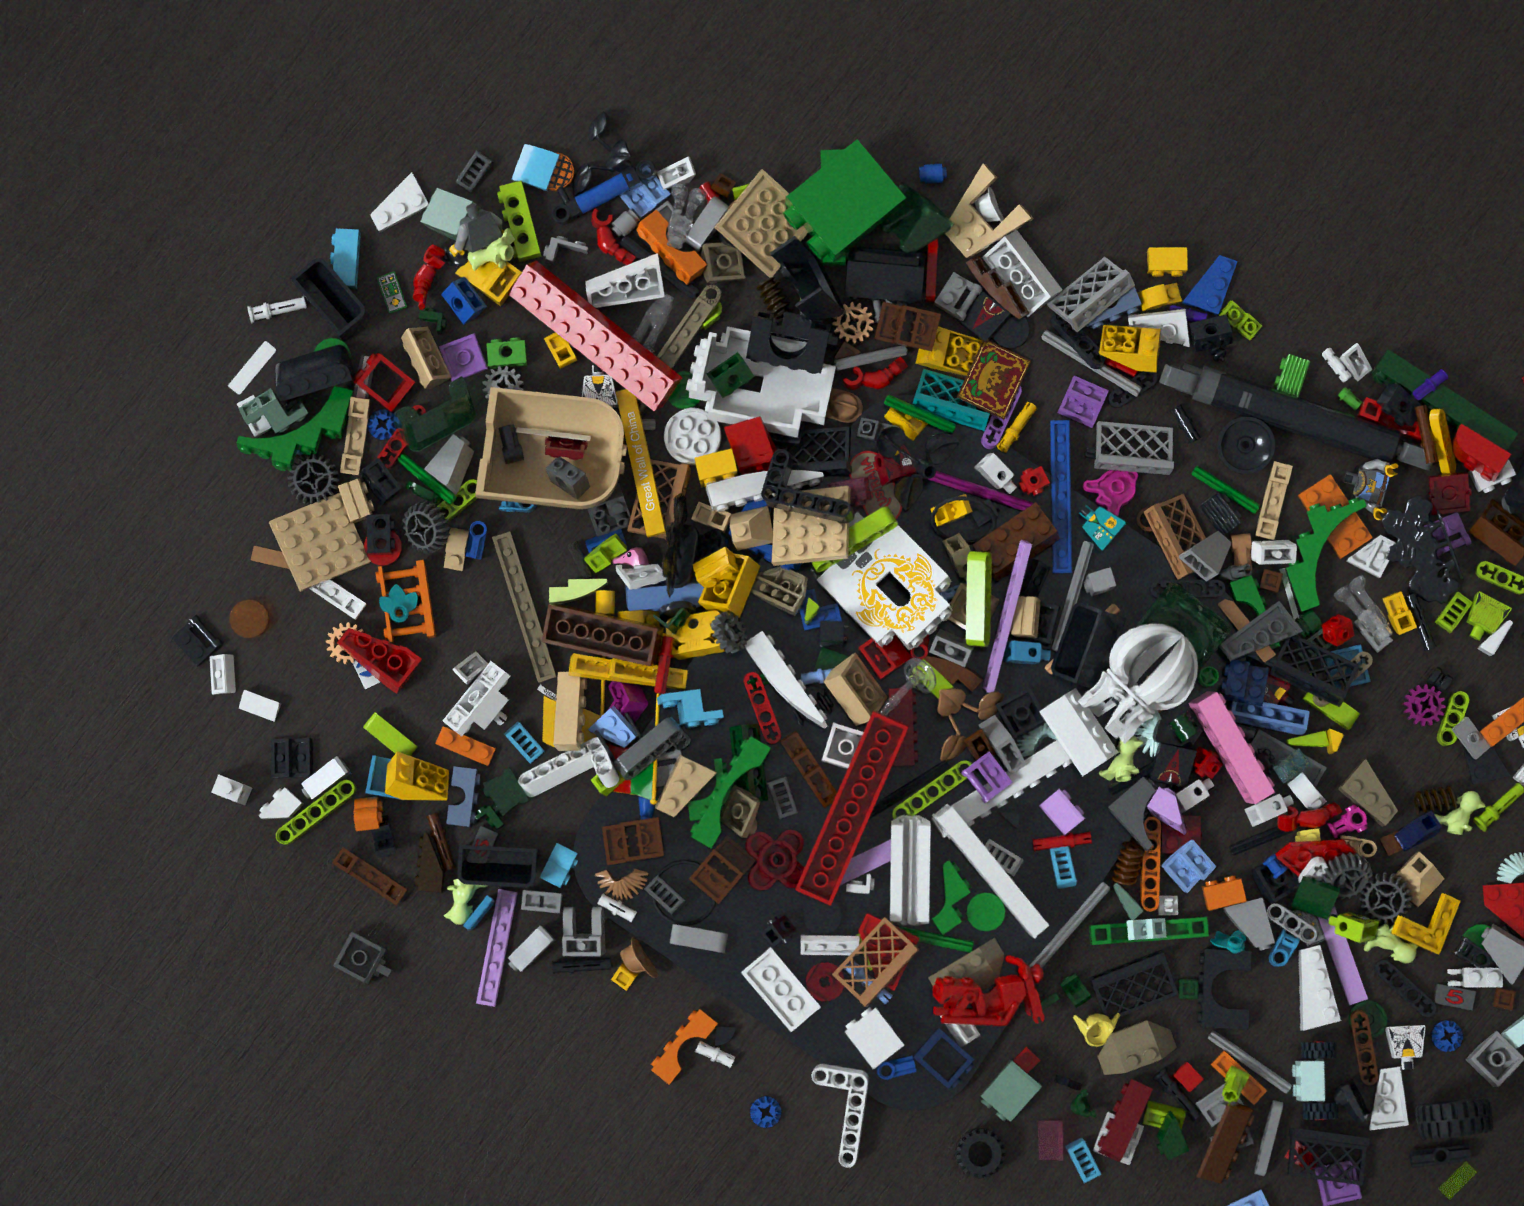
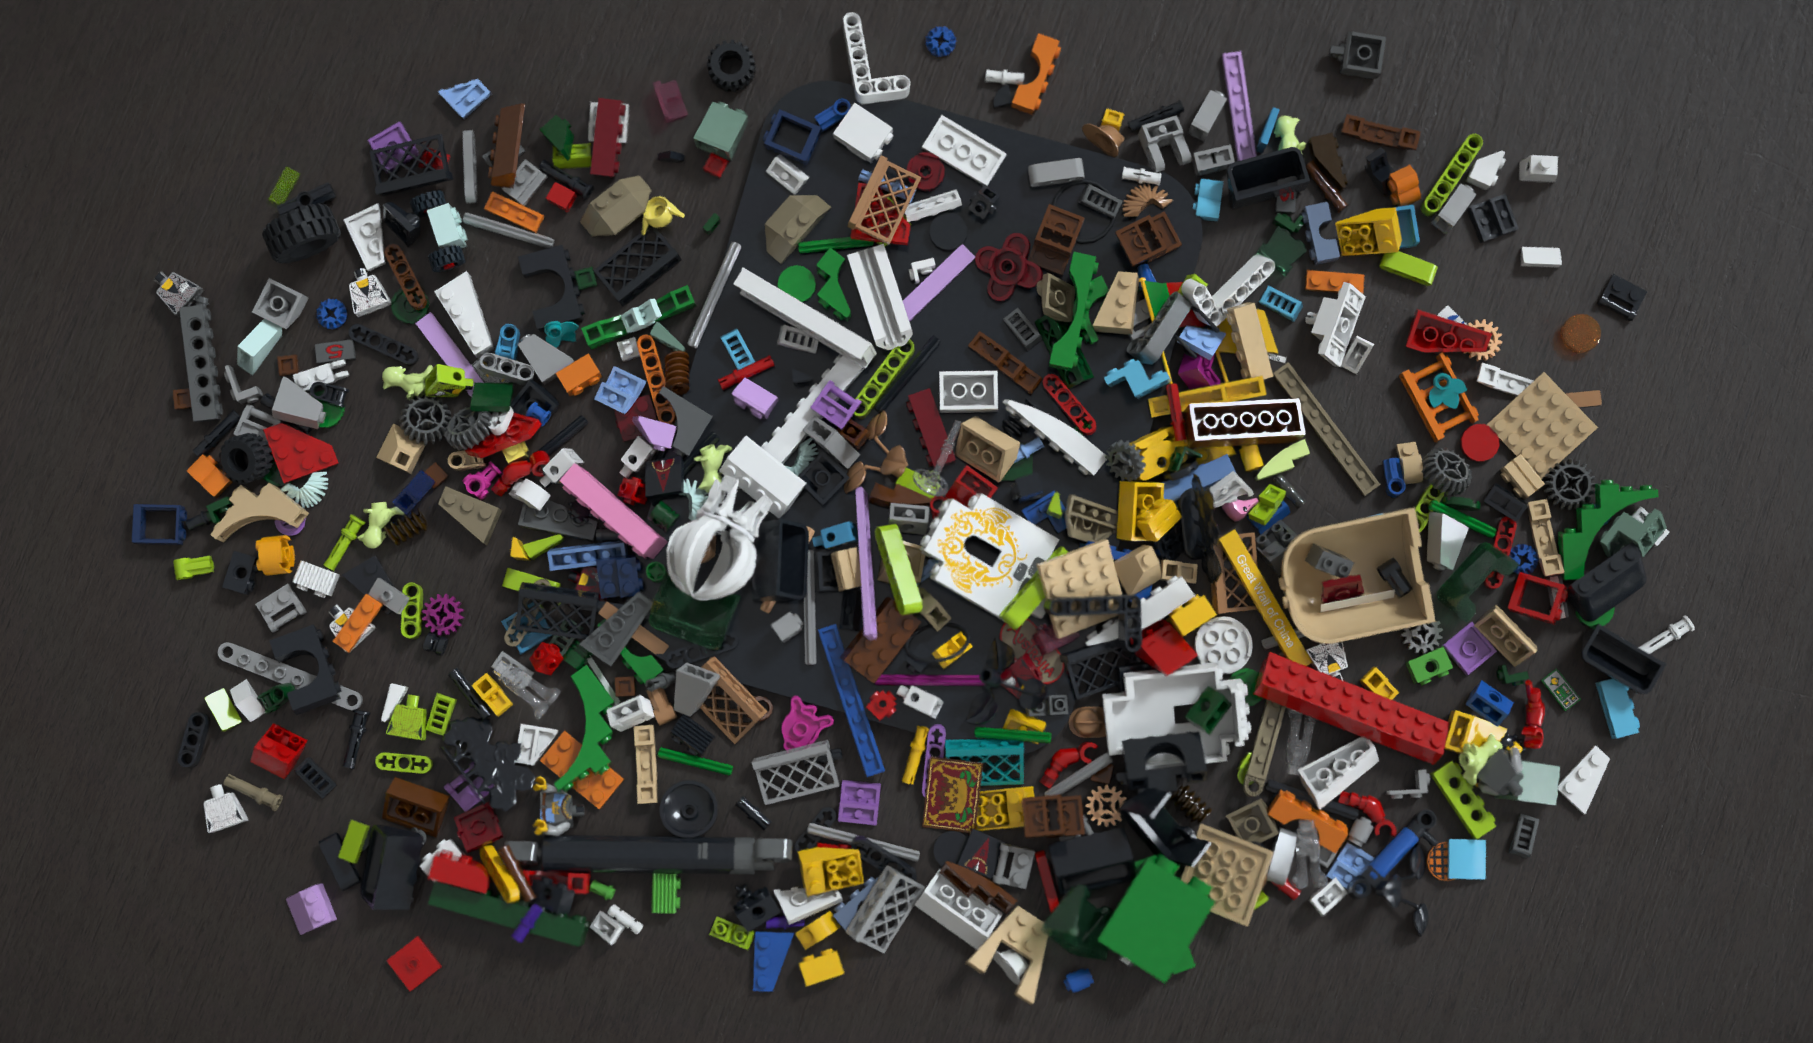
camera: 160 degrees right, 0 degrees up
(222, 674) = (1586, 274): white slope -> none
(252, 367) = (1667, 573): white sticker -> none
(375, 535) = (1492, 449): black brick -> none
(723, 185) = (1278, 901): reddish brown plate -> none
(852, 807) = (953, 333): red brick -> none
(989, 1008) = (763, 192): red piece -> none
(1073, 1155) = (643, 101): medium azure slope -> none
(1075, 990) = (690, 241): dark green bracket -> none
(1081, 1106) = (651, 140): dark green piece -> none
(1101, 525) = (803, 683): teal torso -> none
(1235, 1082) = (515, 203): lime piece -> none
(1290, 765) = (552, 513): clear light blue slope -> none
(1436, 933) = (370, 398): yellow plate -> none

